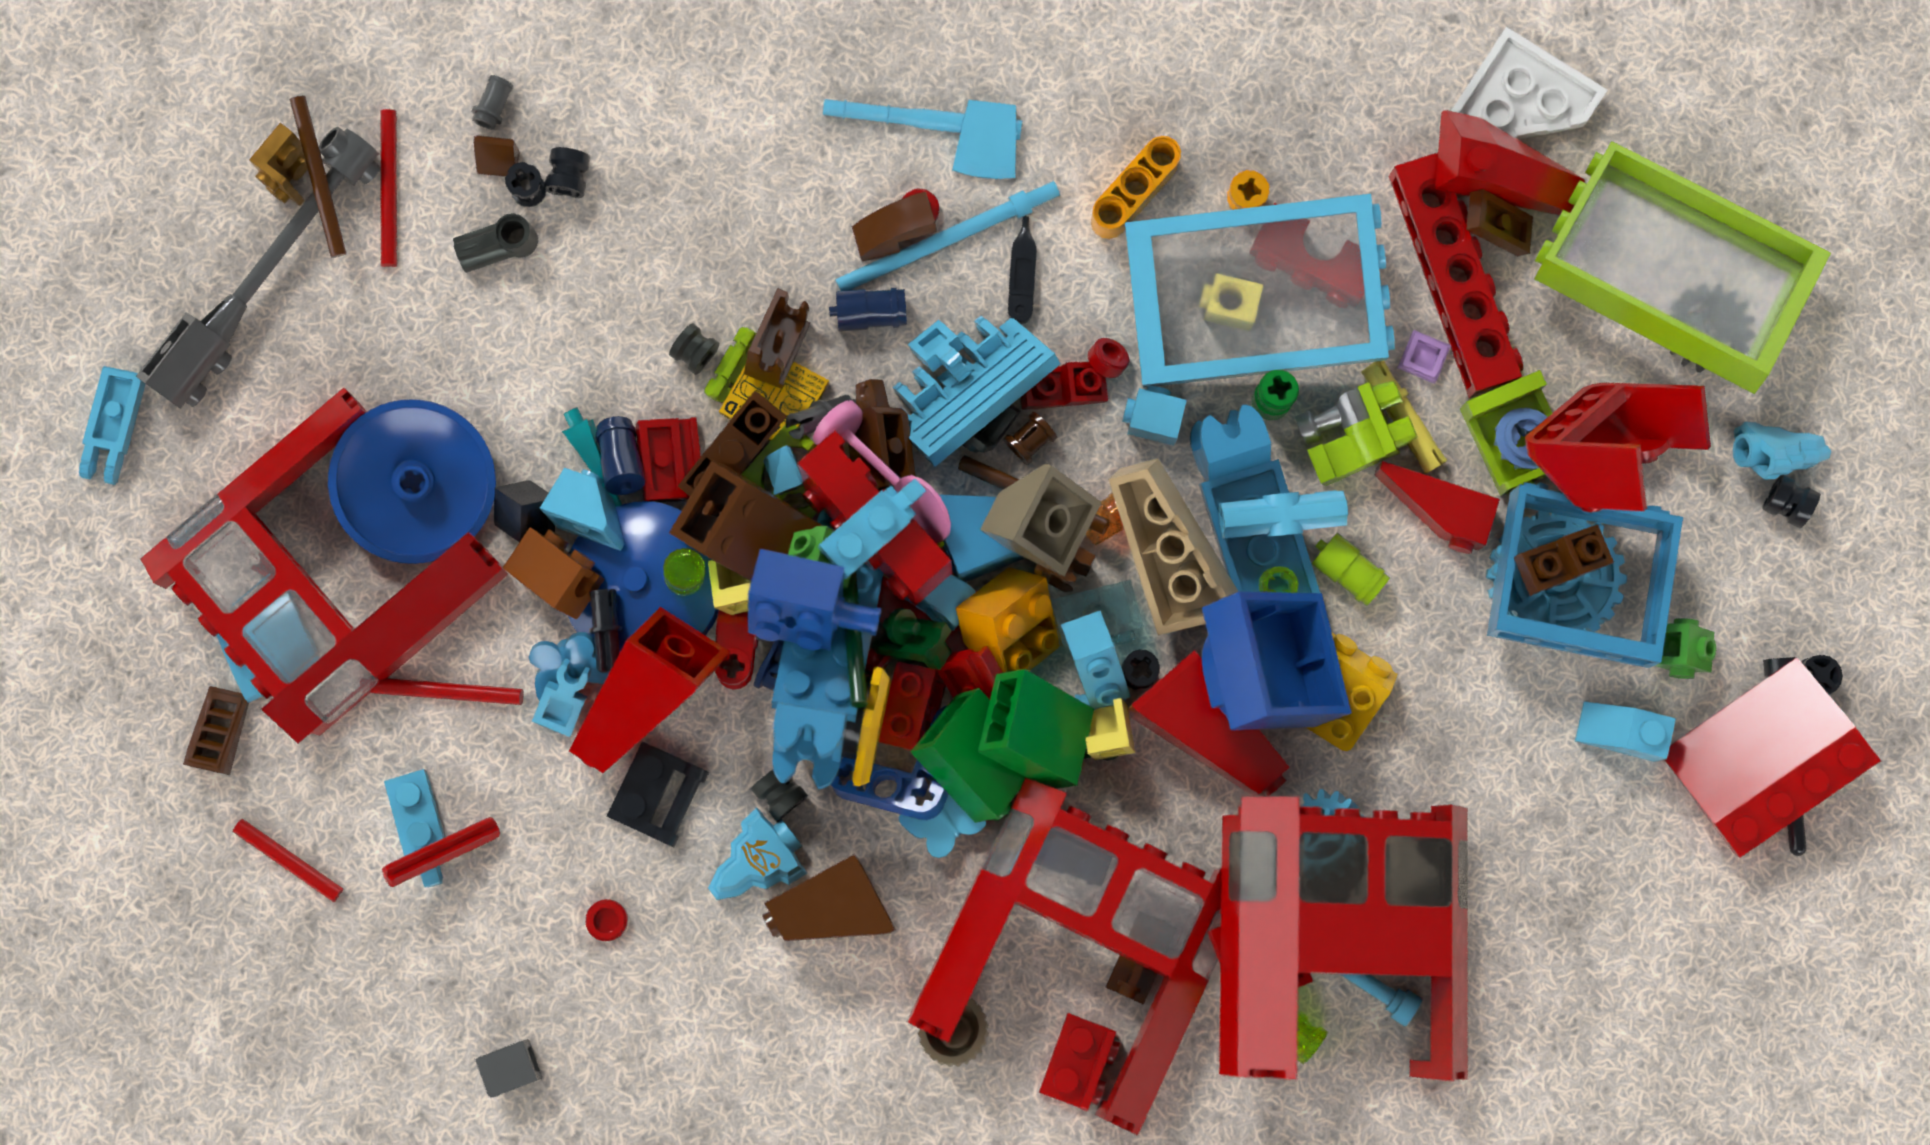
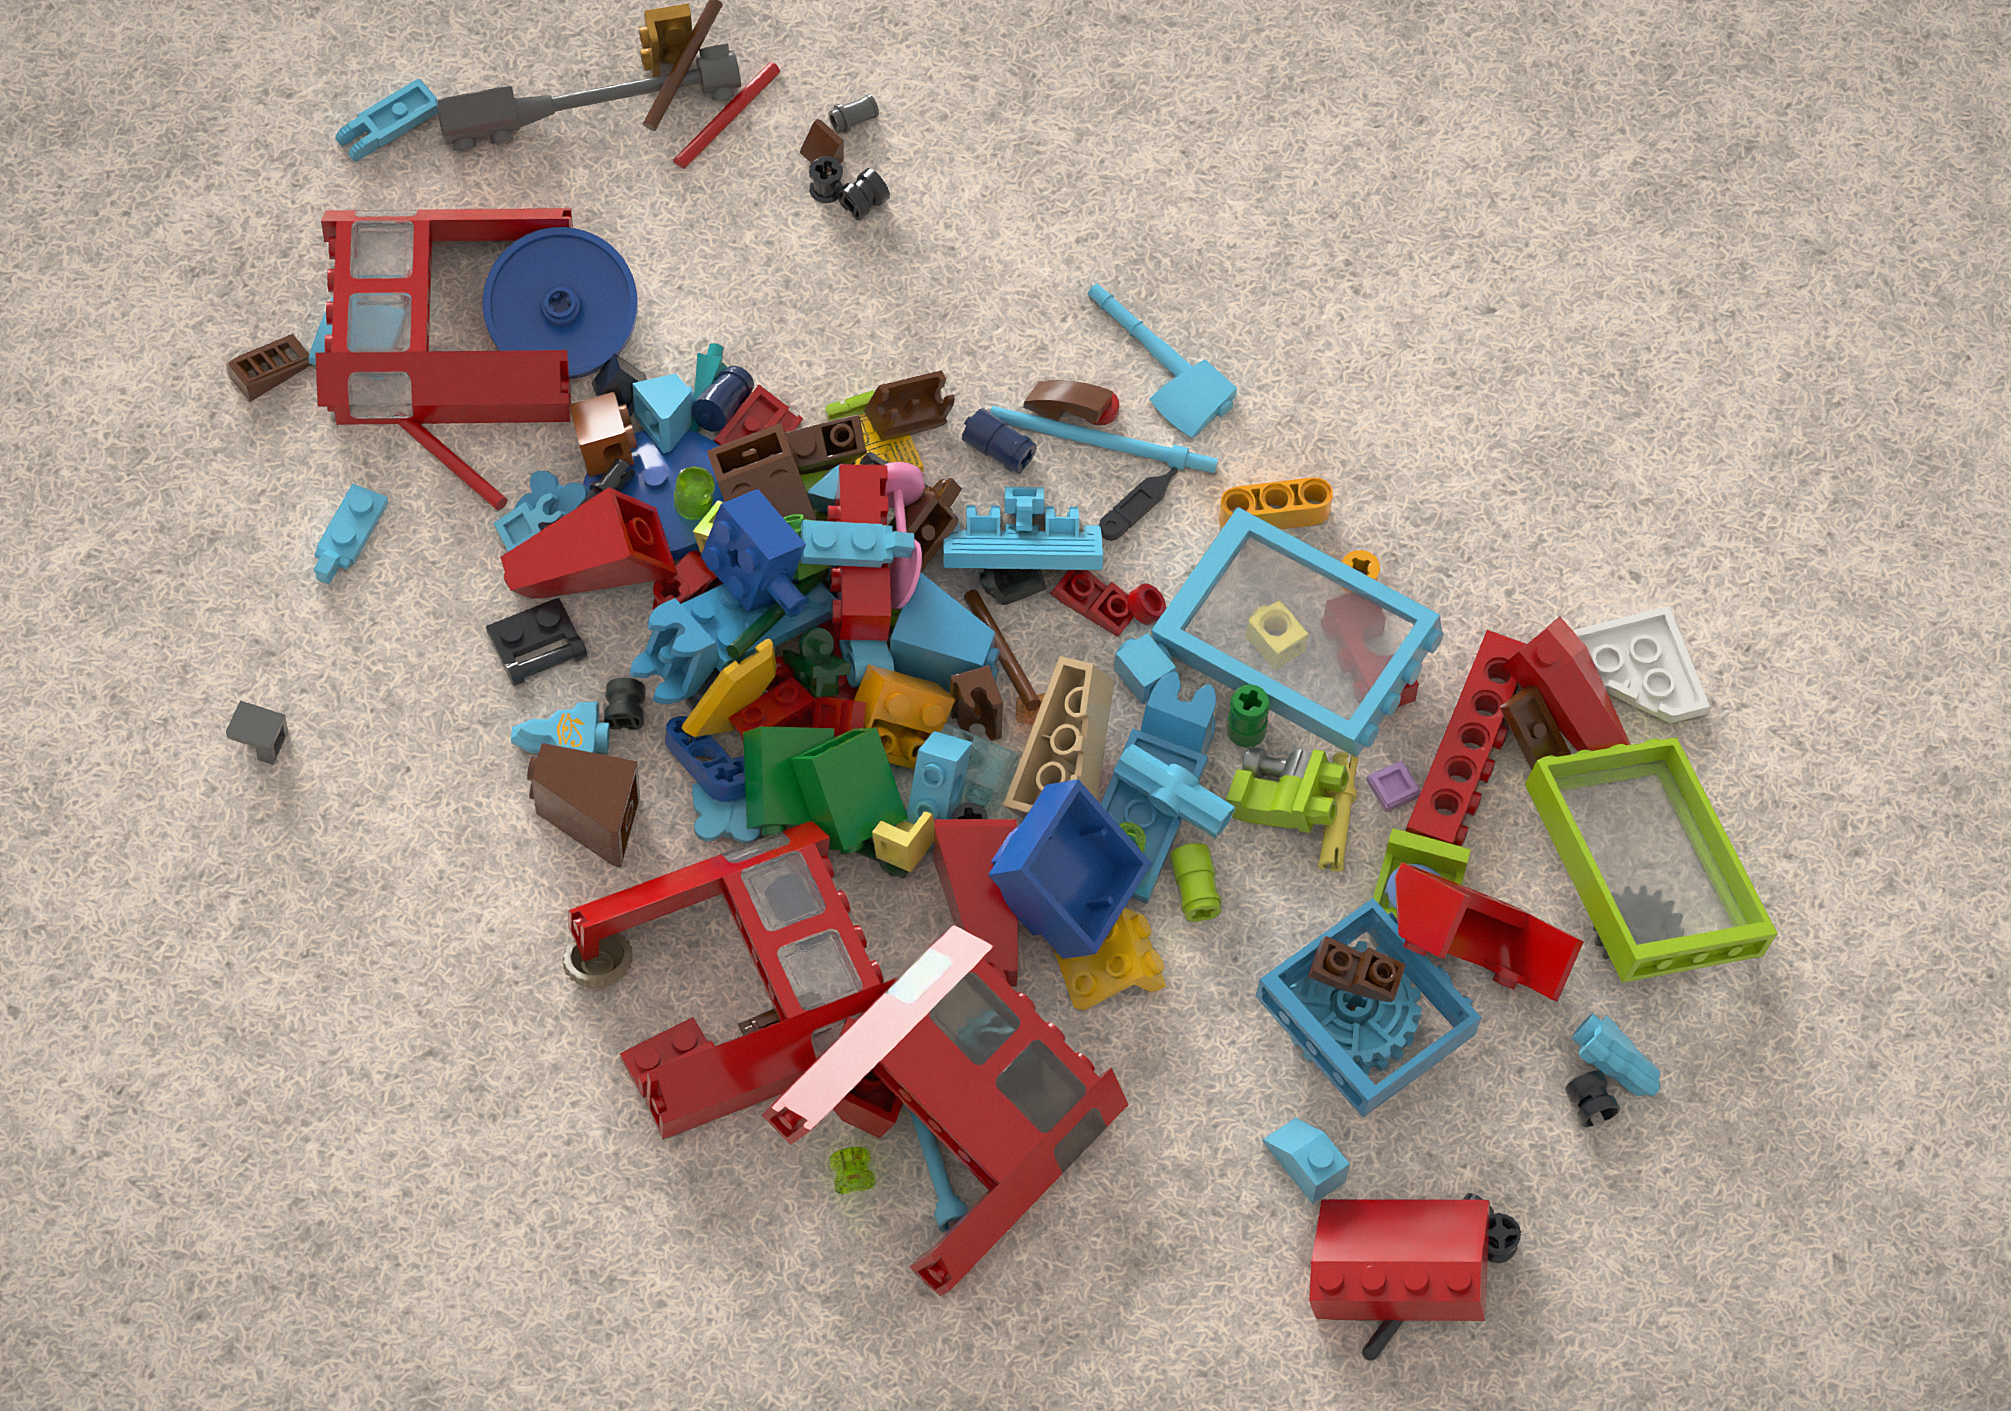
camera: 40 degrees right, 20 degrees down
(287, 860) = (236, 484): red bar -> none
(440, 852) = (347, 552): red axle -> none
(492, 244) = (769, 201): pearl dark grey piece -> none
(606, 920) = (419, 696): red tile -> none
(694, 348) = (844, 371): pearl dark grey wheel -> none
(1030, 438) = (1036, 613): reddish brown bush -> none
(1042, 518) = (986, 640): dark tan slope -> none
(1446, 508) = (1311, 895): red slope -> none
(1687, 649) = (1404, 1128): bright green brick -> none

